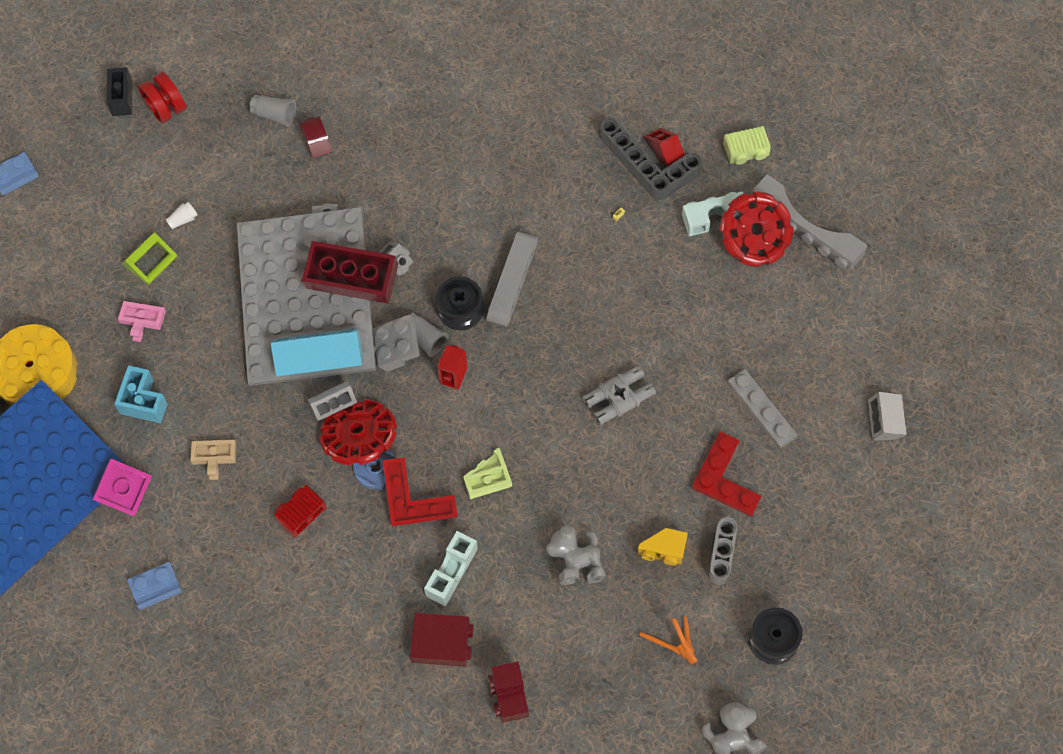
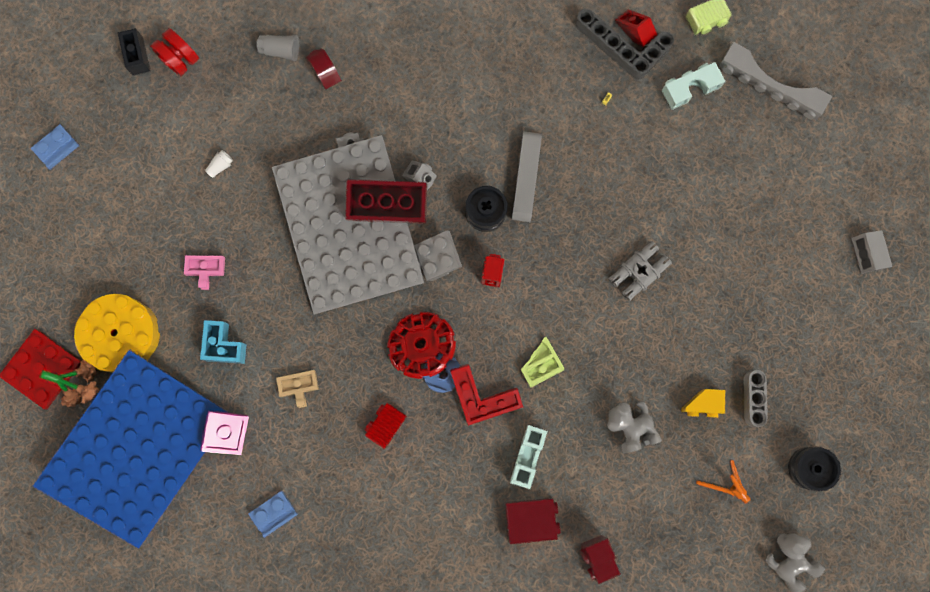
camera: 15 degrees left, 15 degrees up
(141, 250) = (190, 203): lime tile -> none
(317, 352) = (371, 279): medium azure brick -> none
(332, 400) = (392, 319): light grey brick -> none
(429, 337) = (464, 243): light grey plant -> none
(712, 484) = (732, 334): red plate -> none
(762, 409) = (764, 261): light grey plate -> none
(768, 226) = (743, 95): red plate -> none

